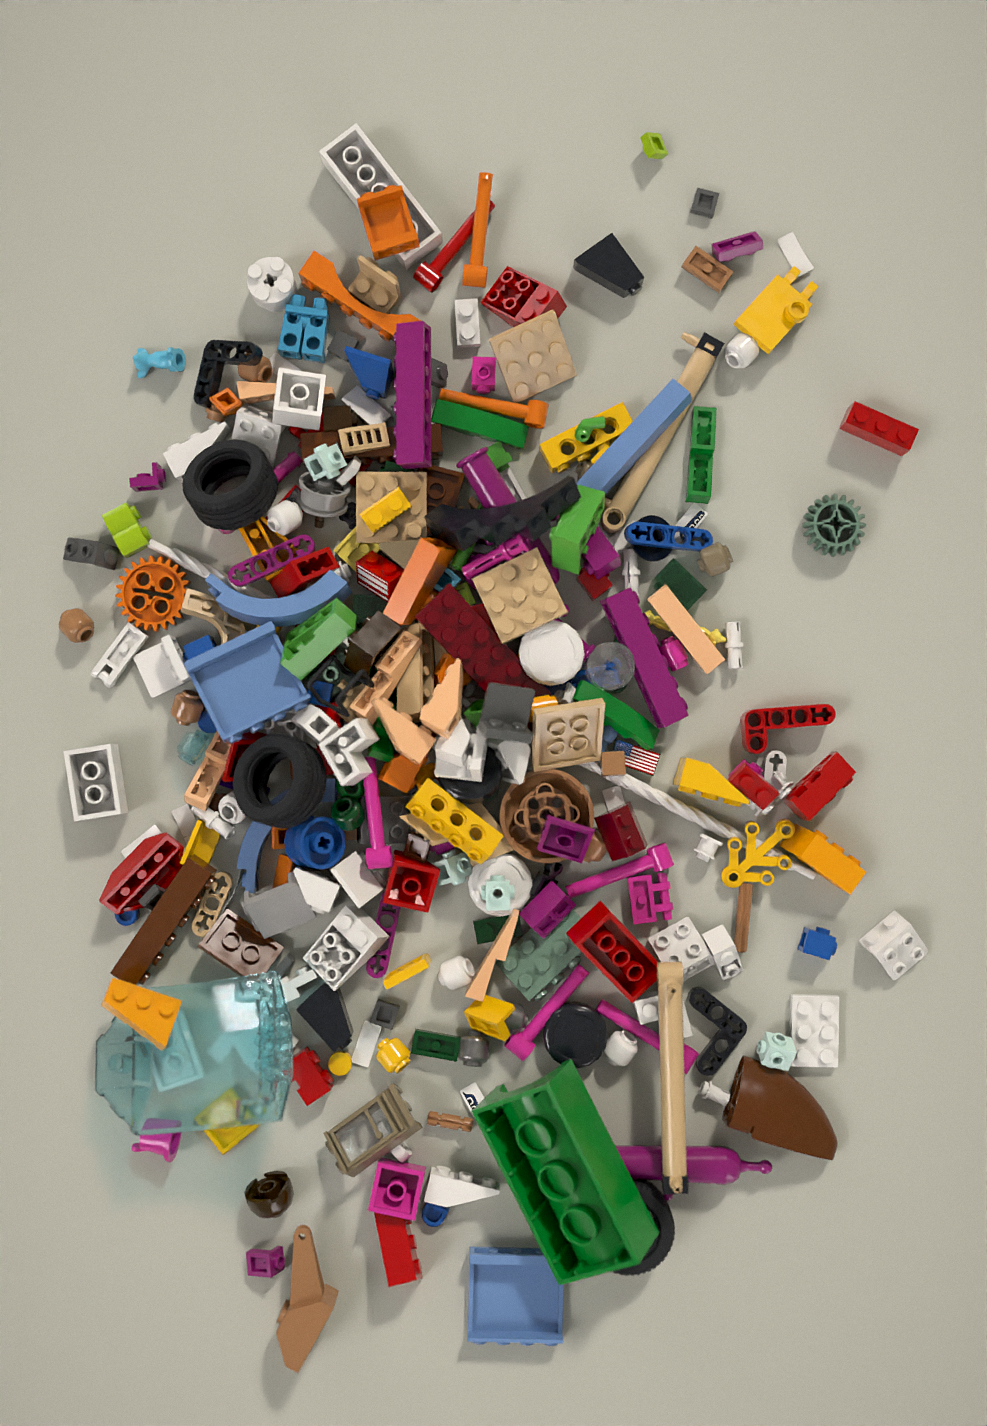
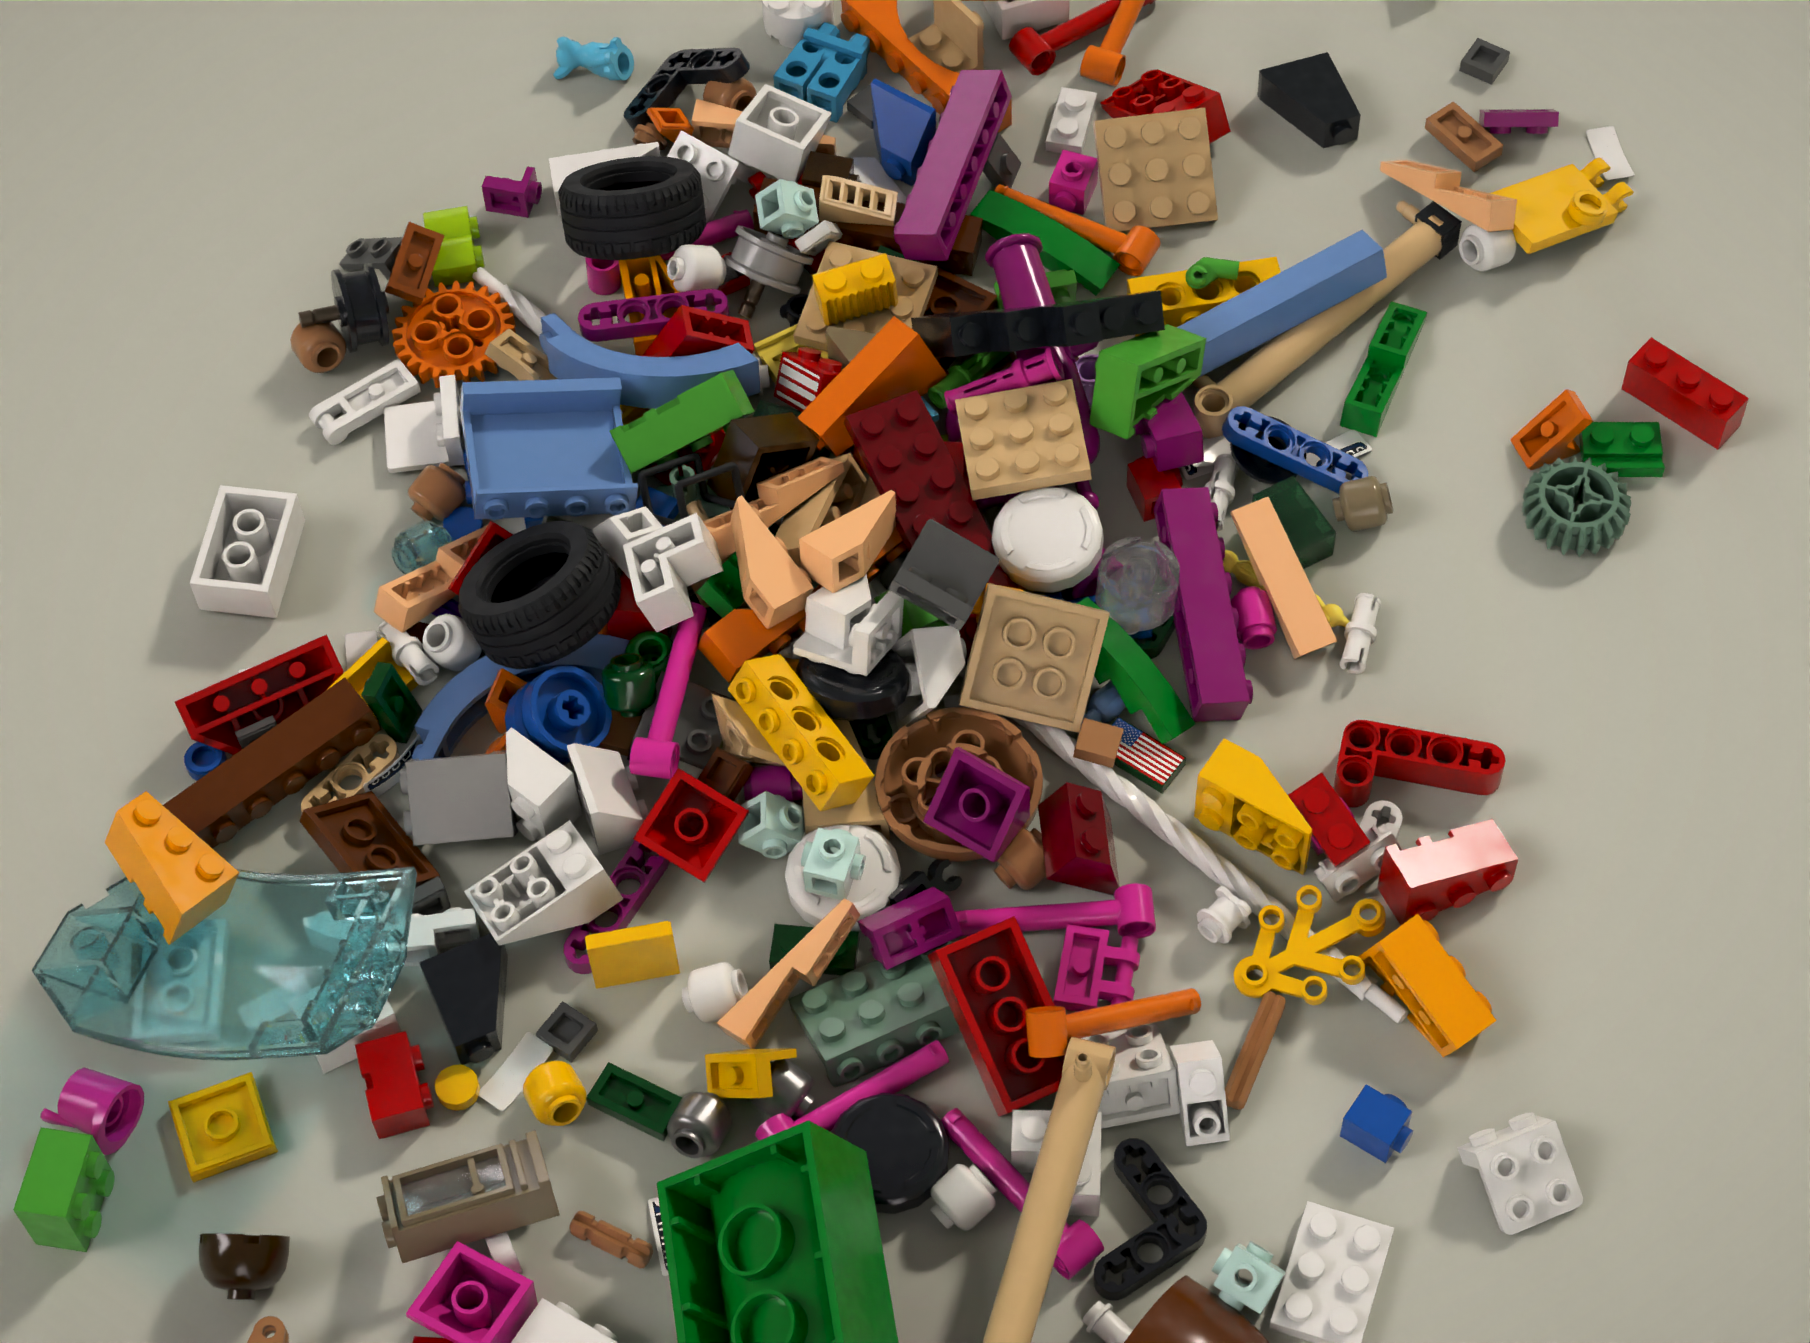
camera: 20 degrees right, 30 degrees down
(91, 600) = (357, 307): none -> black wheel
(112, 559) = (414, 263): none -> dark orange plate
(164, 1192) = (64, 1190): none -> bright green brick
(218, 858) = (391, 702): none -> dark green plate
(645, 961) = (1052, 1028): none -> orange piece
(704, 317) = (1443, 187): none -> light nougat slope
(809, 478) = (1552, 431): none -> orange slope
(848, 474) = (1624, 447): none -> green plate

